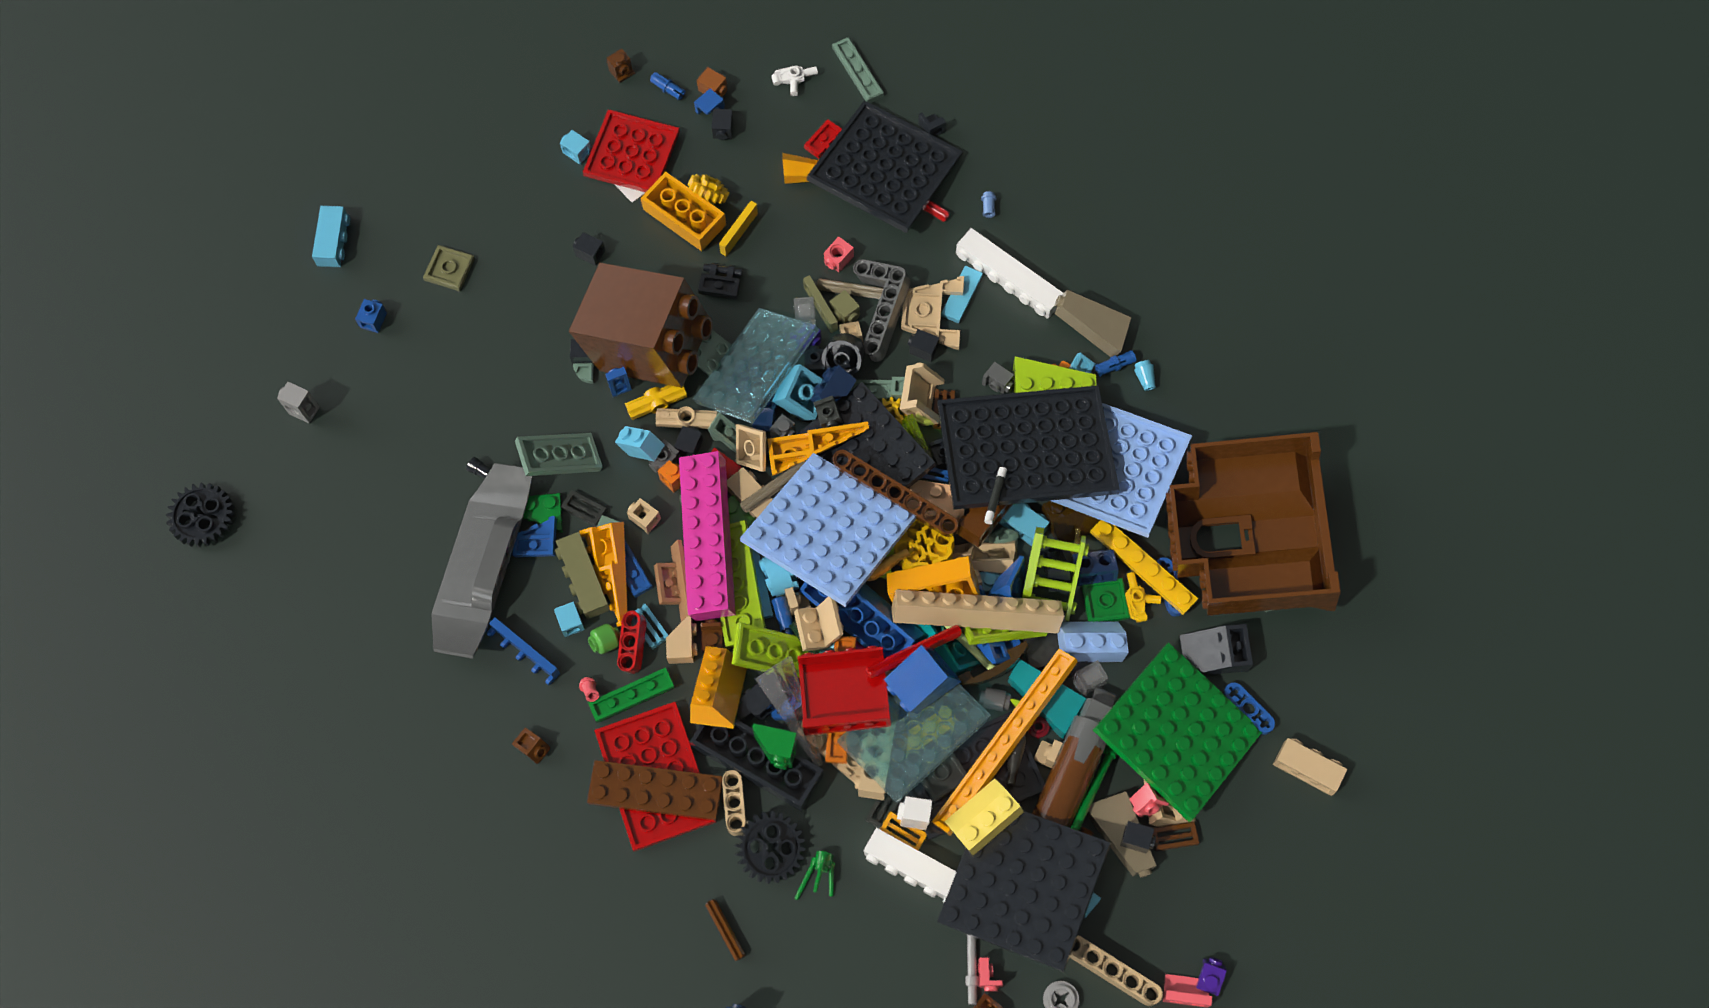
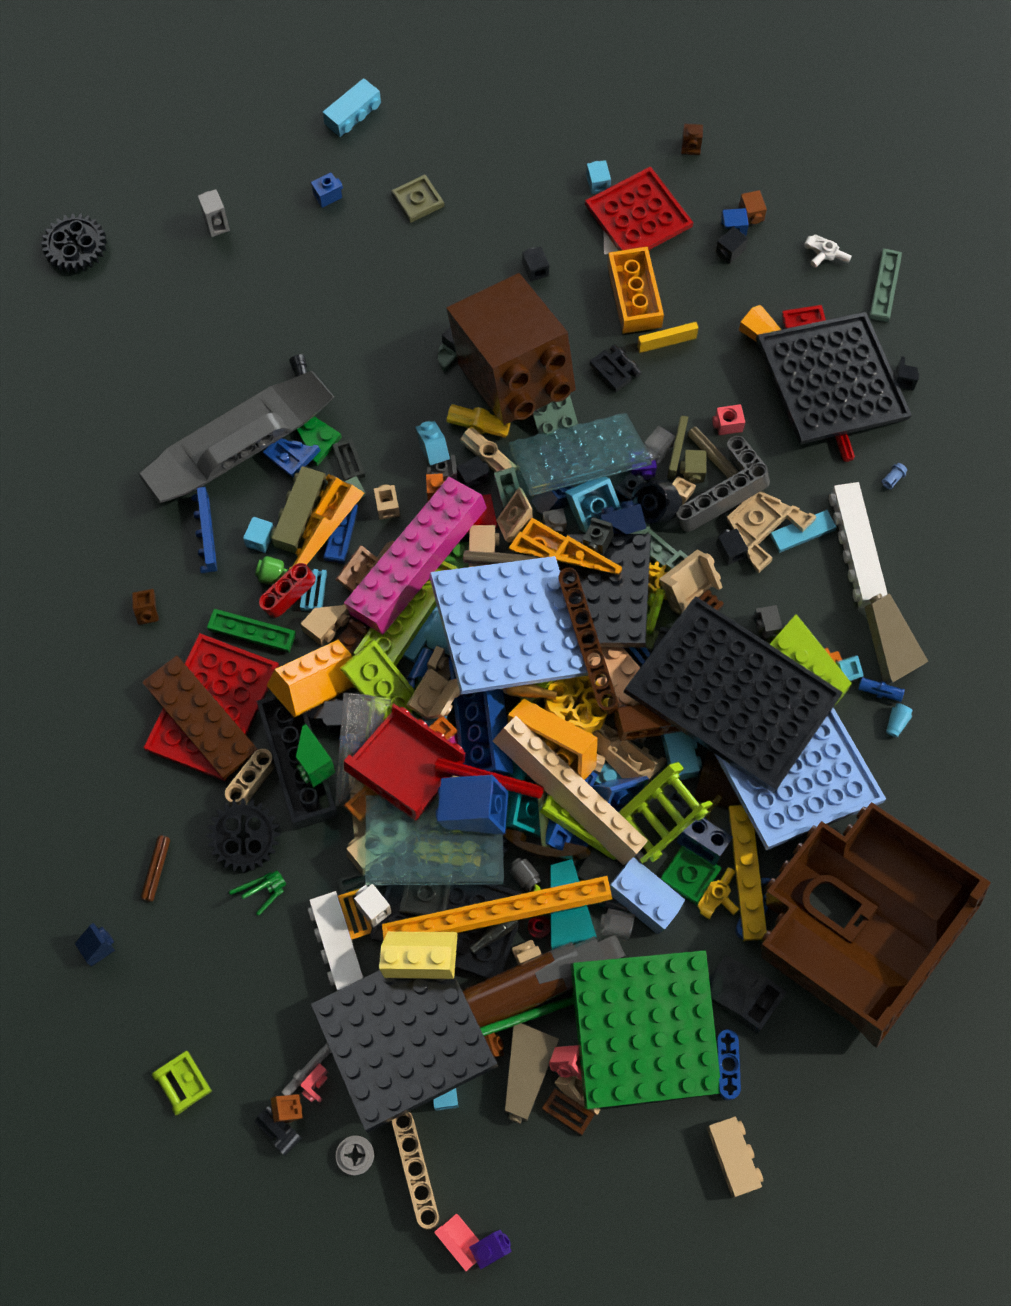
camera: 40 degrees right, 0 degrees up
(558, 454) = (363, 401): sand green plate -> none
(588, 686) = (226, 597): coral pin -> none
(618, 381) = (460, 382): blue plate -> none
(667, 85) = (715, 183): blue axle -> none
(708, 188) = (671, 286): yellow gear -> none
(995, 495) = (669, 706): pearl dark grey bar -> none
(1003, 535) = (653, 750): sand green tile -> none
(1138, 837) = (531, 1083): black brick -> none

